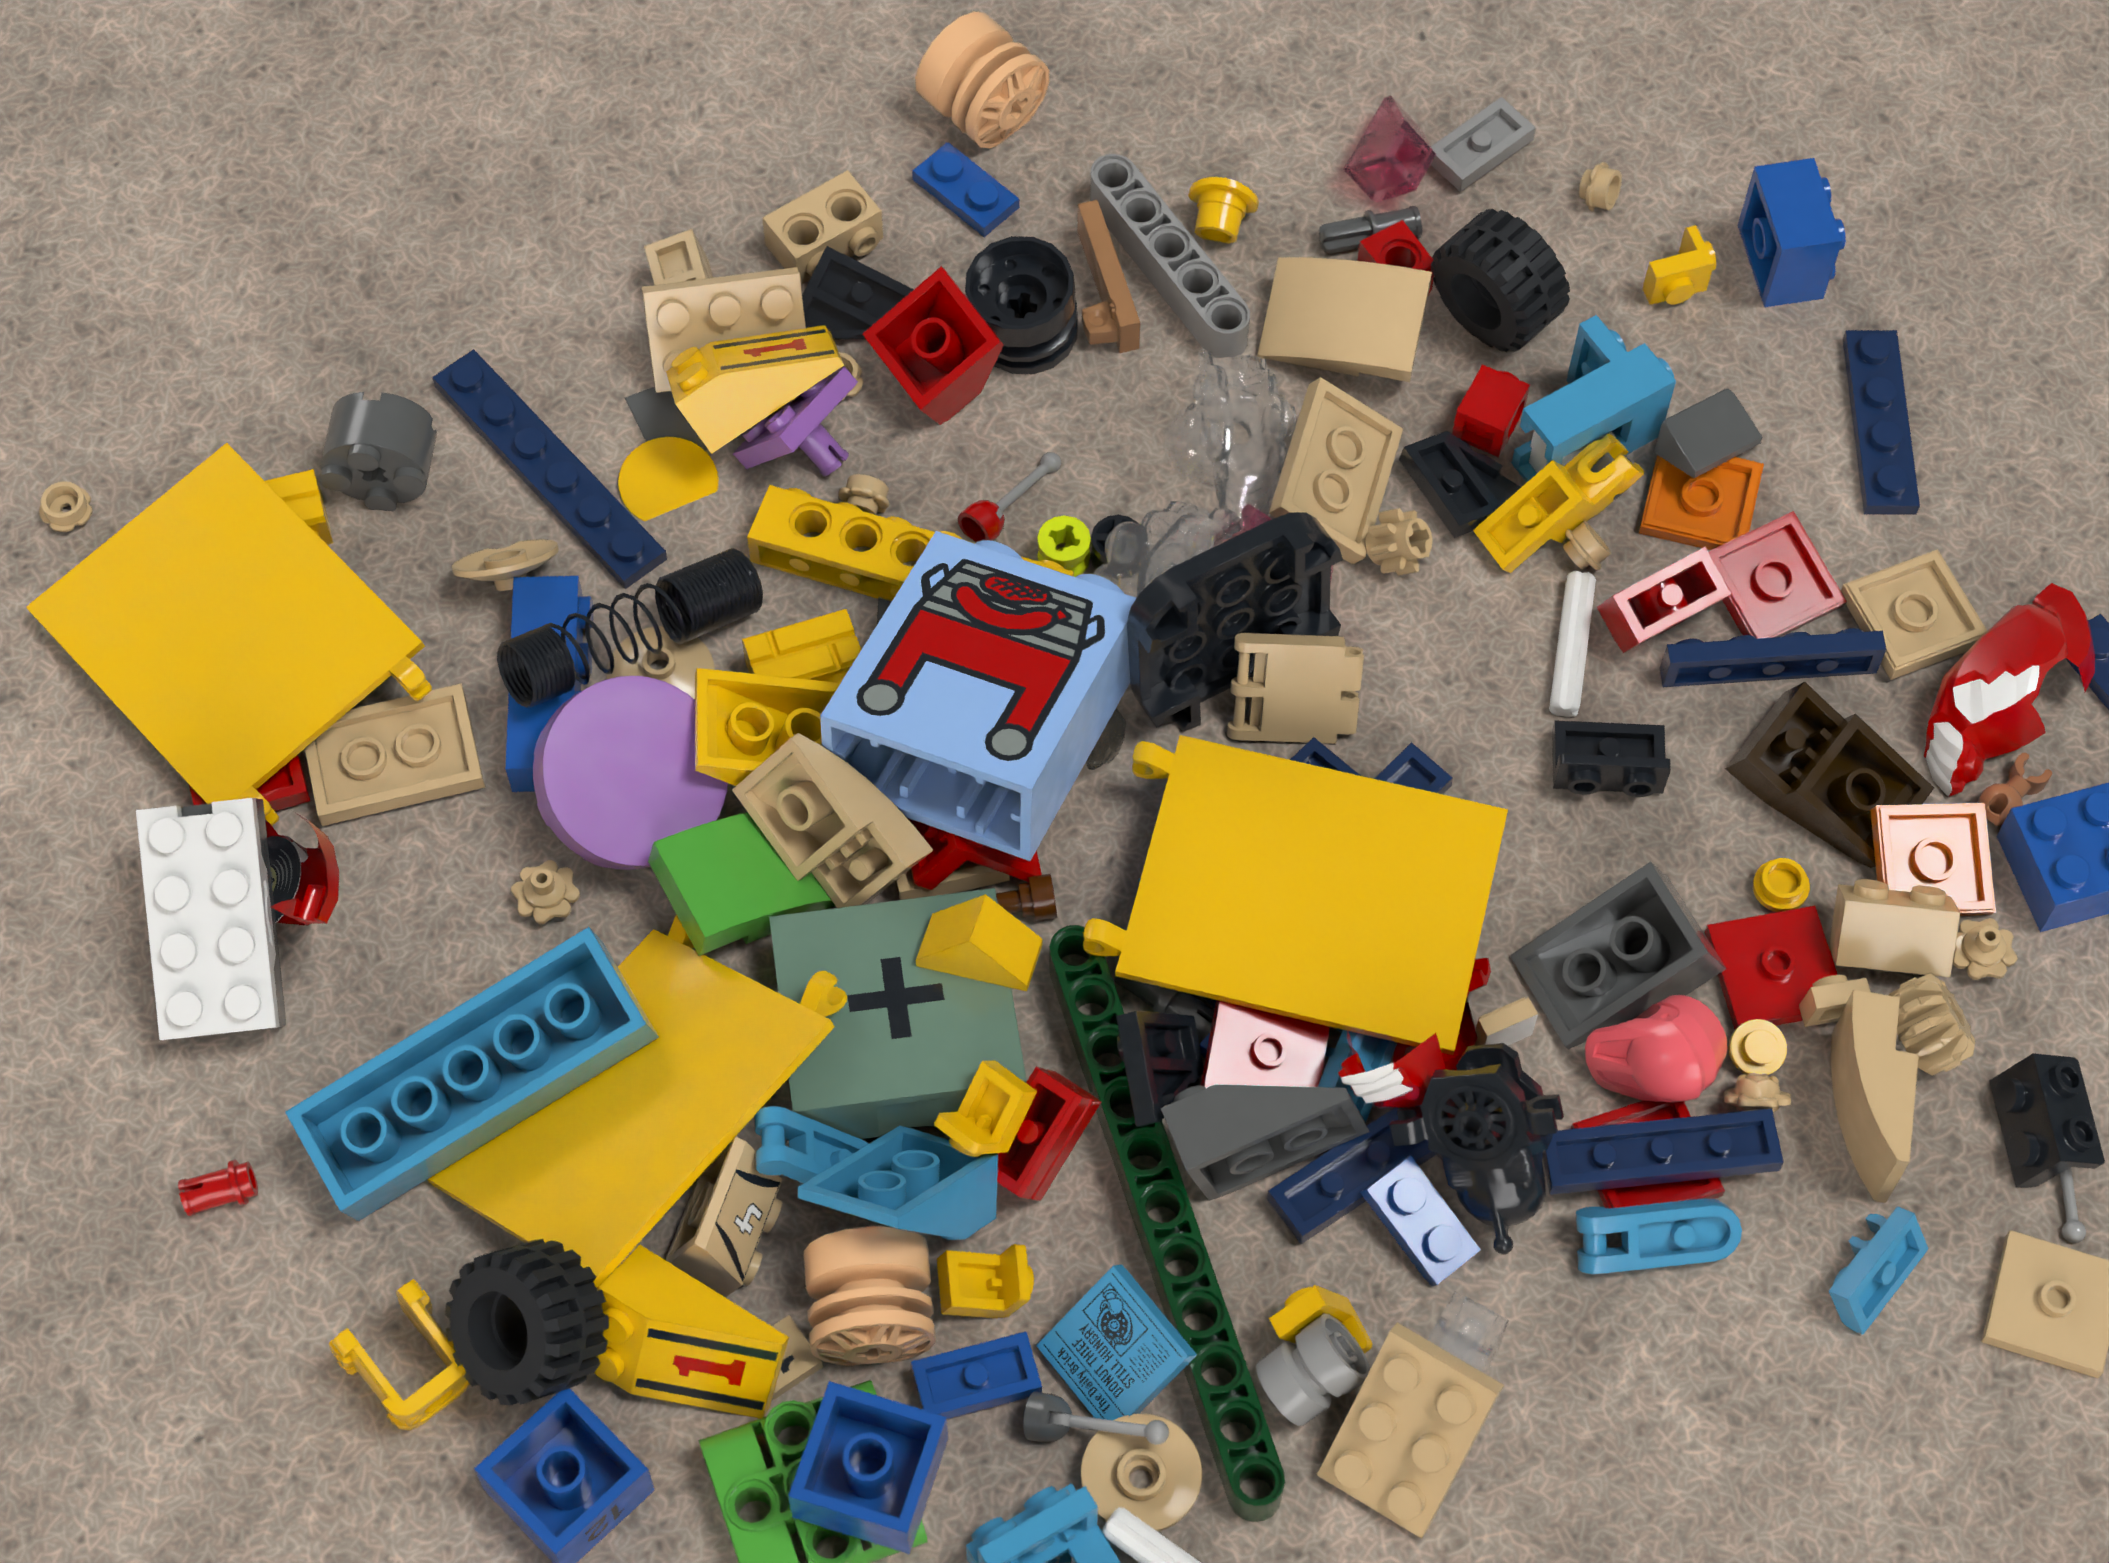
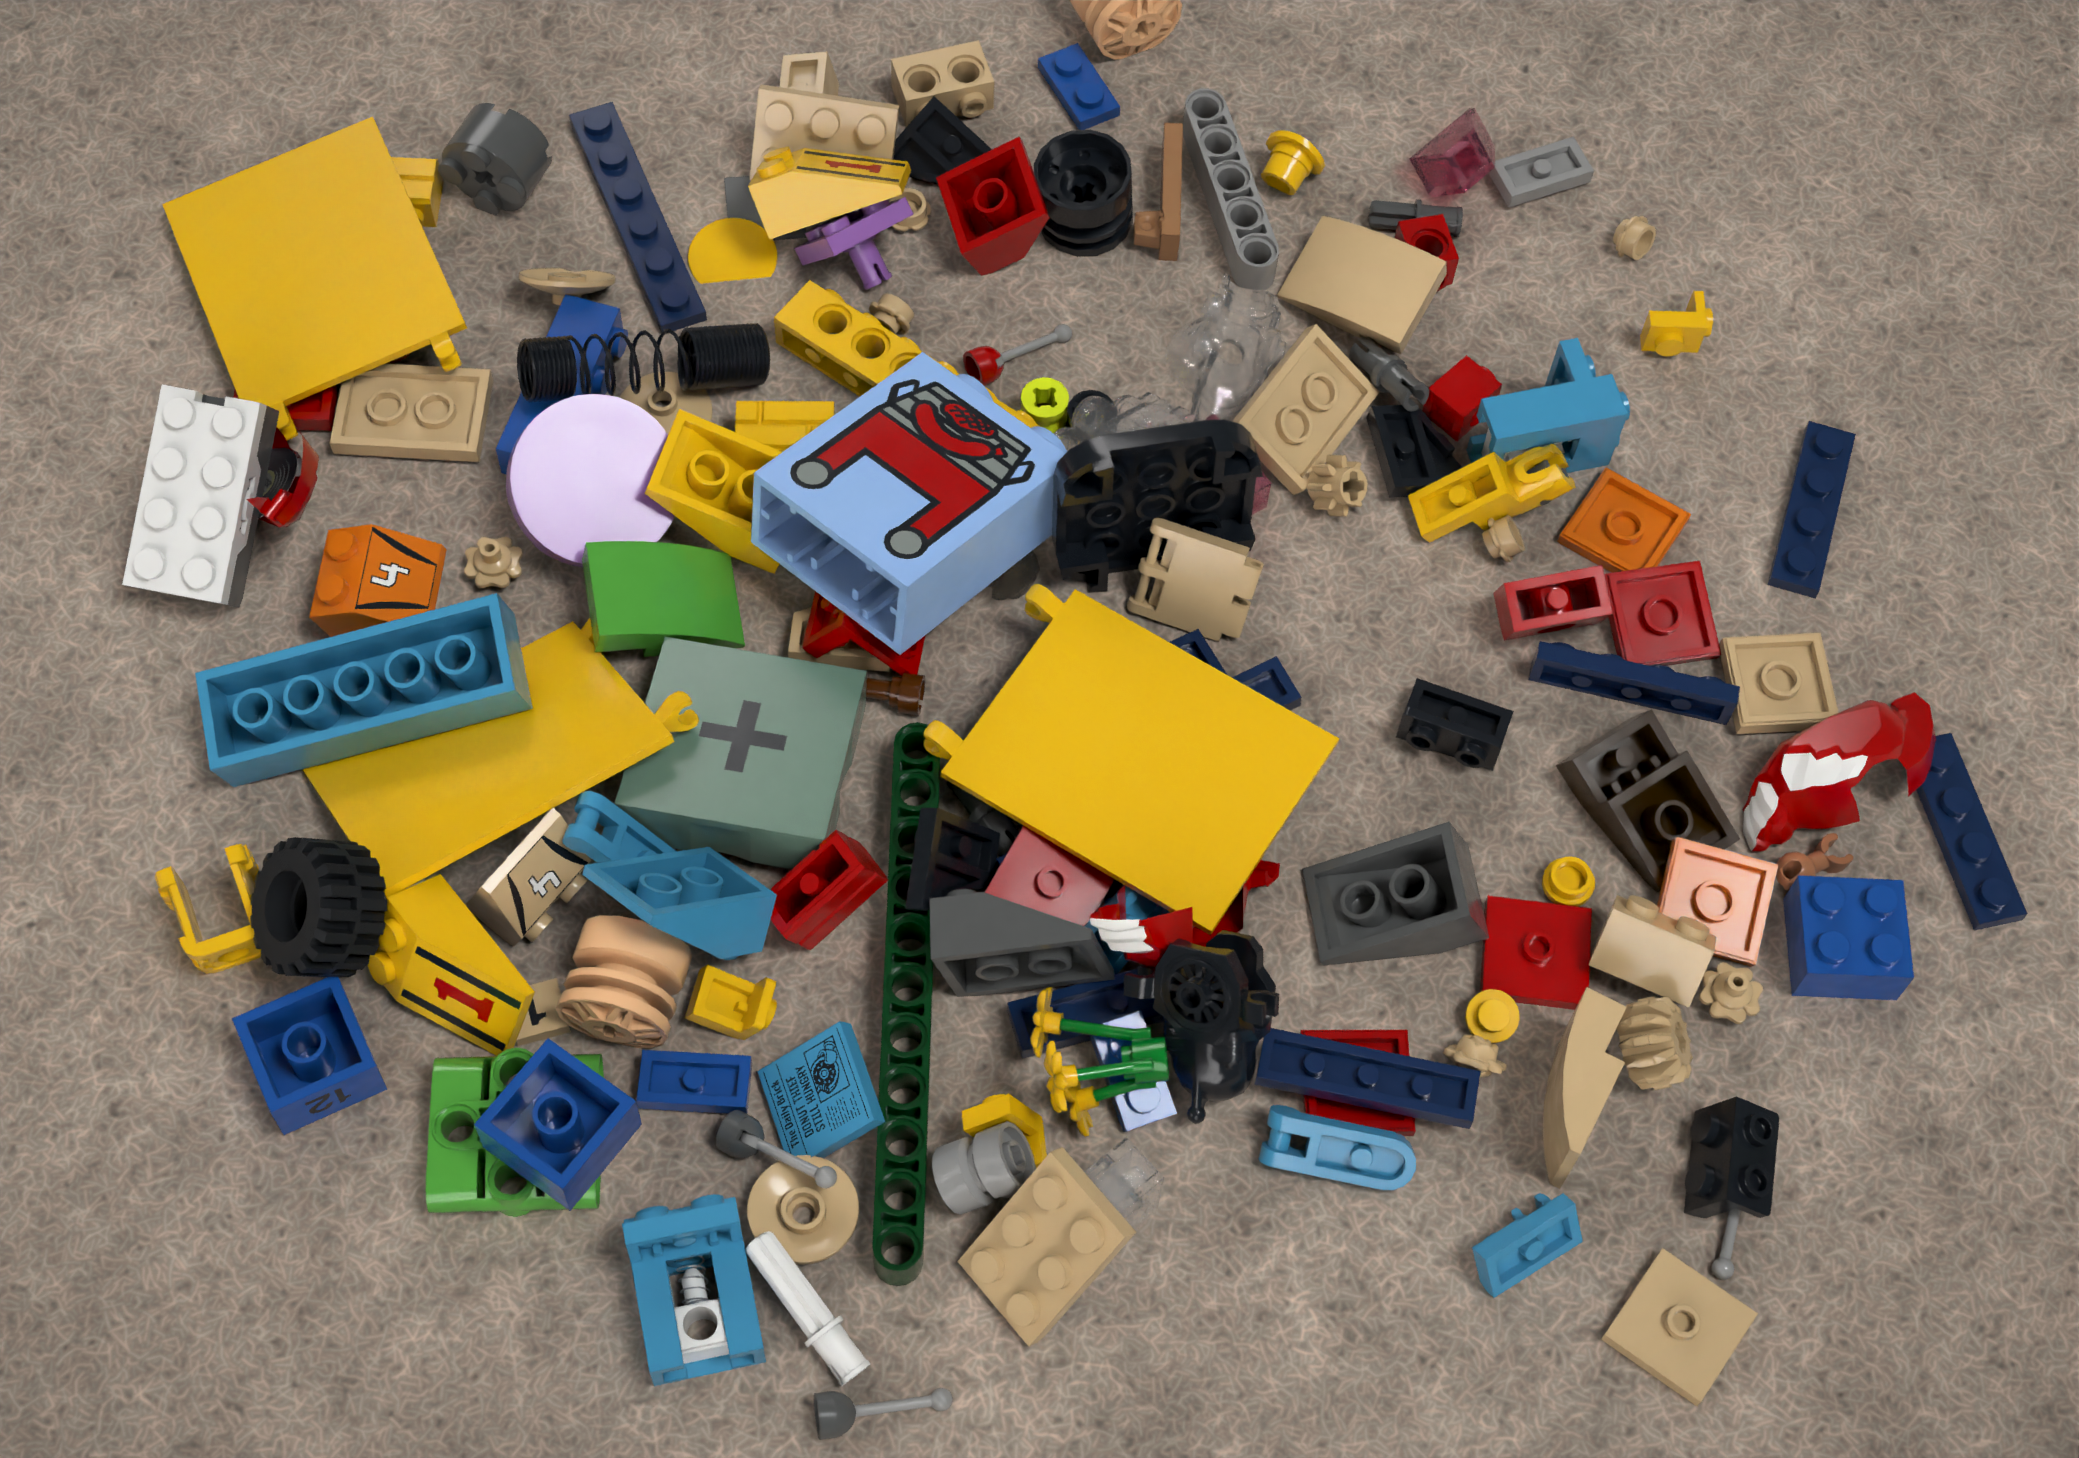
camera: 15 degrees right, 0 degrees up
(62, 495) = (229, 124): tan plate -> none
(218, 1188) = (139, 723): red pin -> none
(433, 953) = (374, 578): none -> orange slope
(830, 822) = (745, 572): tan slope -> none
(980, 944) = (833, 713): yellow slope -> none
(988, 1112) = (779, 856): yellow bracket -> none
(1408, 406) = (1389, 374): none -> dark grey pin
(1436, 1212) = (1141, 1063): none -> plant
(1500, 280) = (1508, 287): black tyre -> none
(1507, 1023) = (1273, 925): tan tile -> none
(1572, 644) = (1460, 619): white axle -> none
(1661, 1054) = (1400, 993): coral helmet -> none
(1707, 434) = (1647, 472): dark grey slope -> none
(1790, 232) = (1787, 320): blue brick -> none
(1828, 999) = (1566, 990): tan plate -> none

